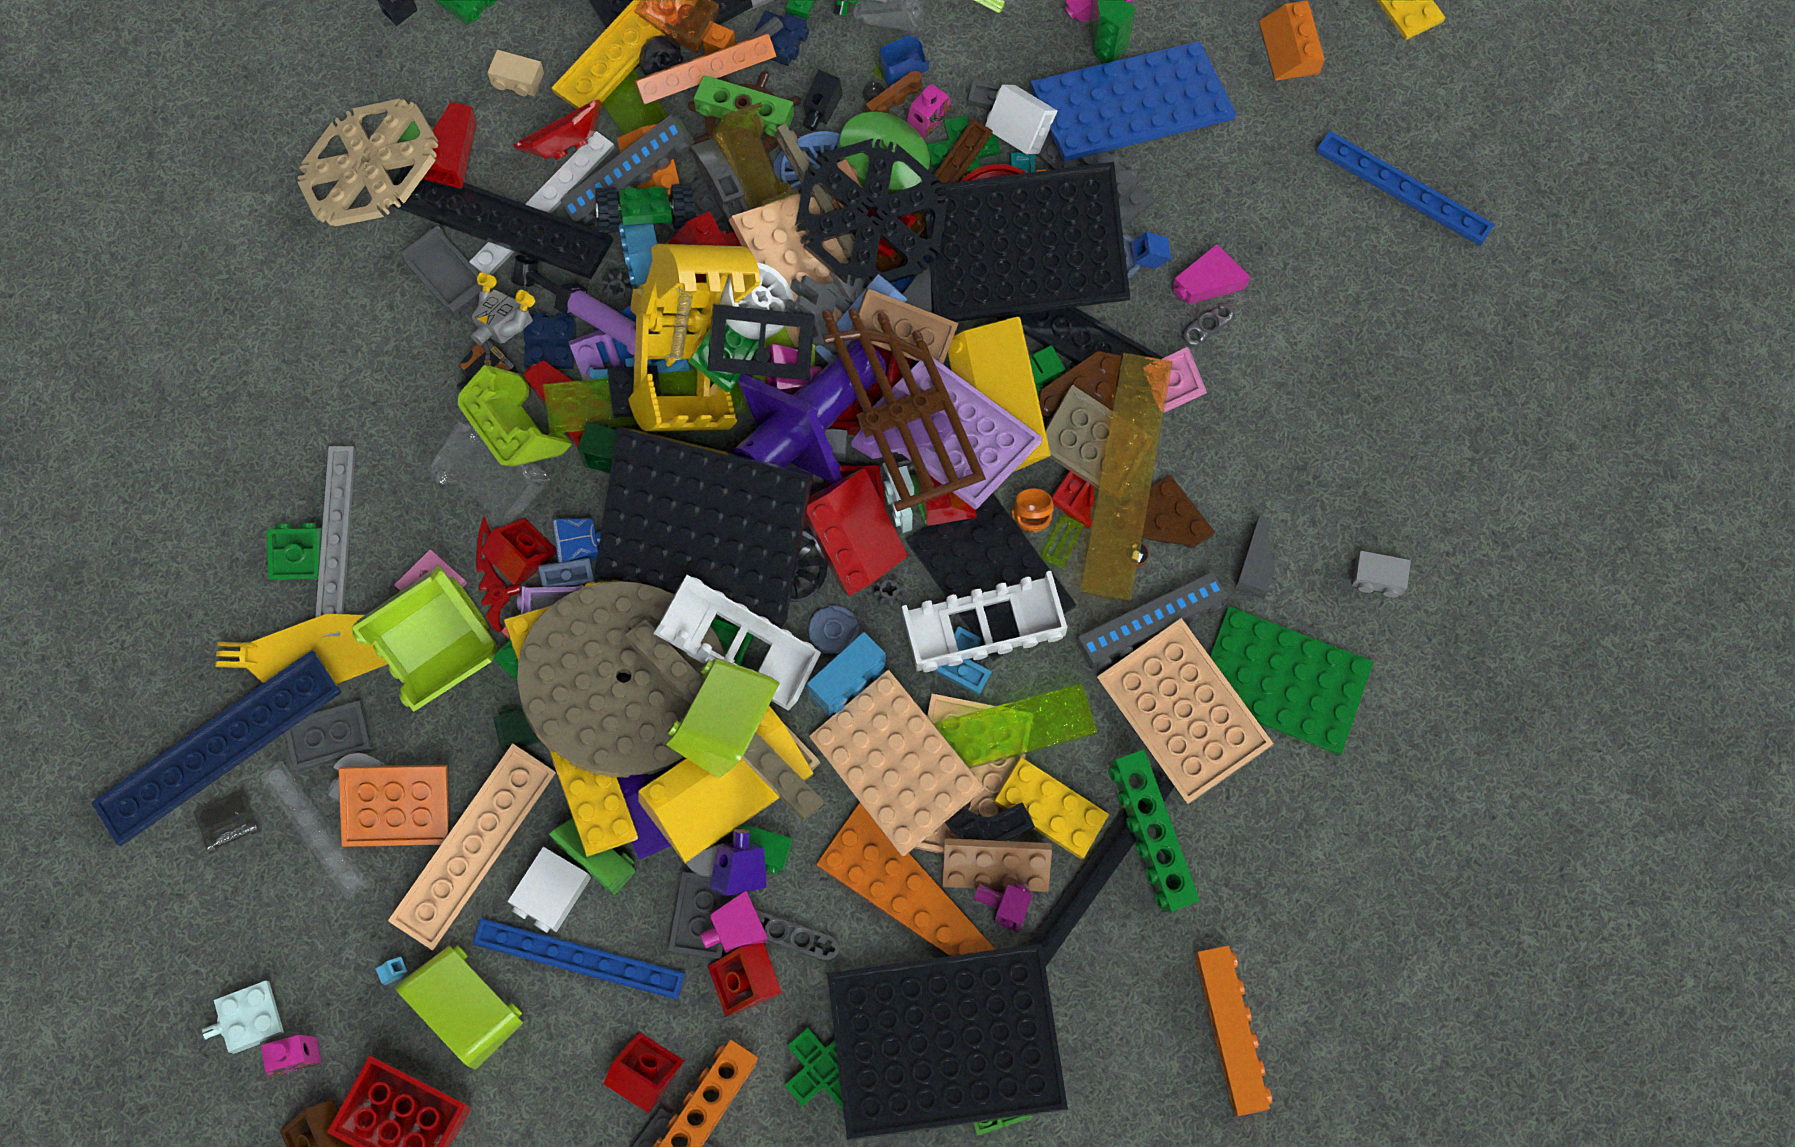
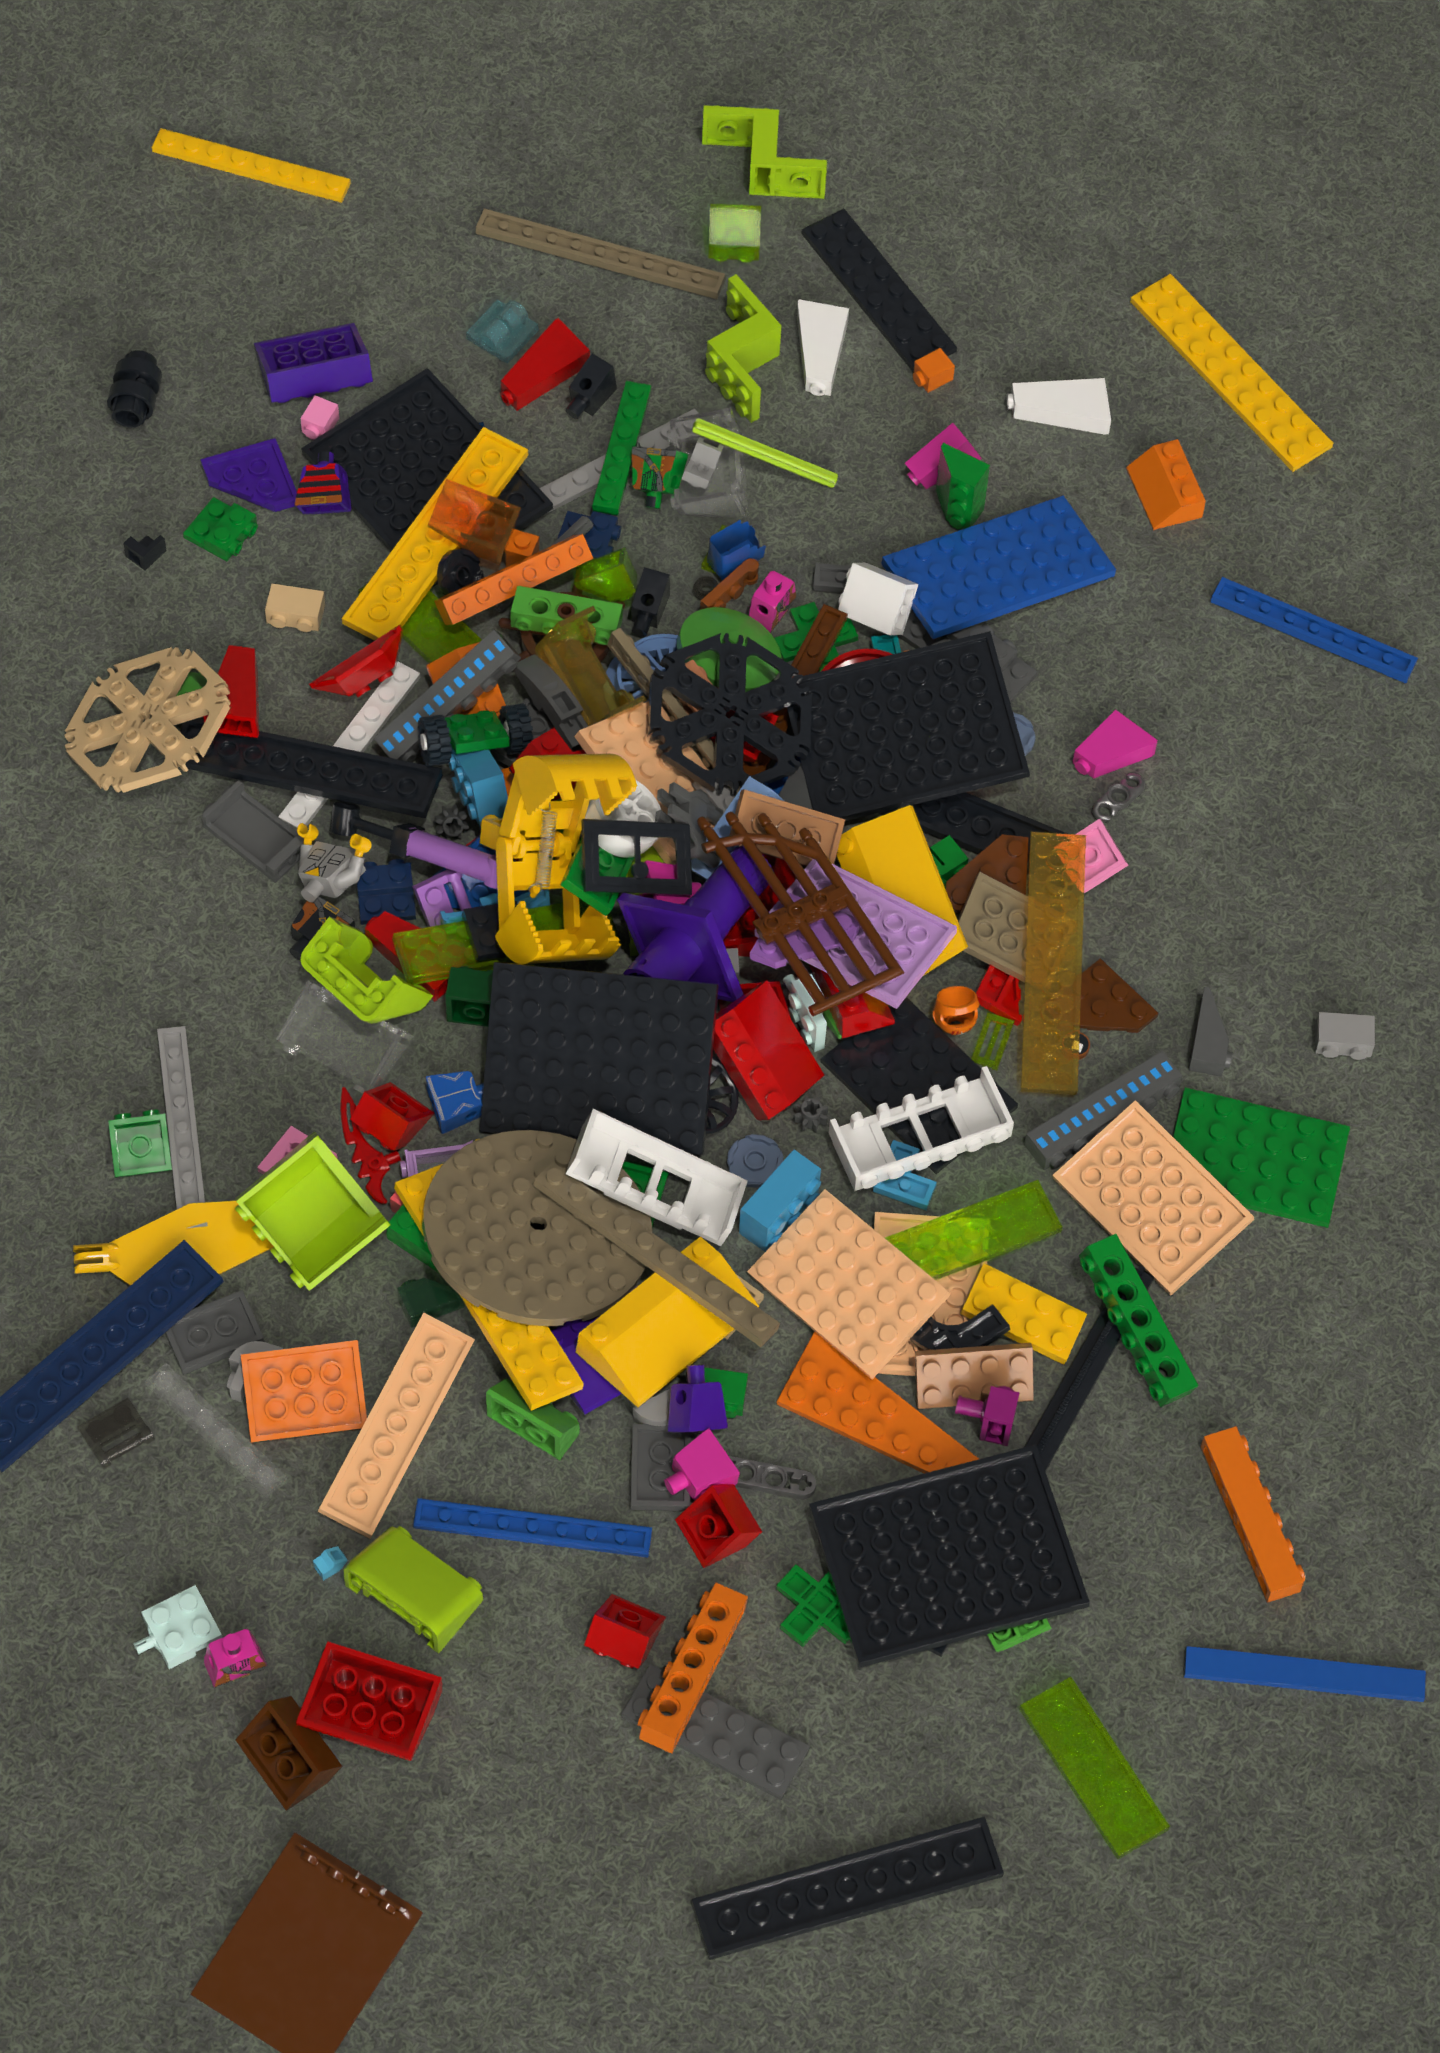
camera: 10 degrees left, 10 degrees down
(548, 890) = (489, 1460): white brick -> none
(567, 573) = (450, 1131): sand blue slope -> none
(722, 716) = (658, 1247): lime windscreen -> none
(788, 74) = (608, 576): none -> clear neon green slope
(1150, 250) = (1043, 724): blue brick -> none

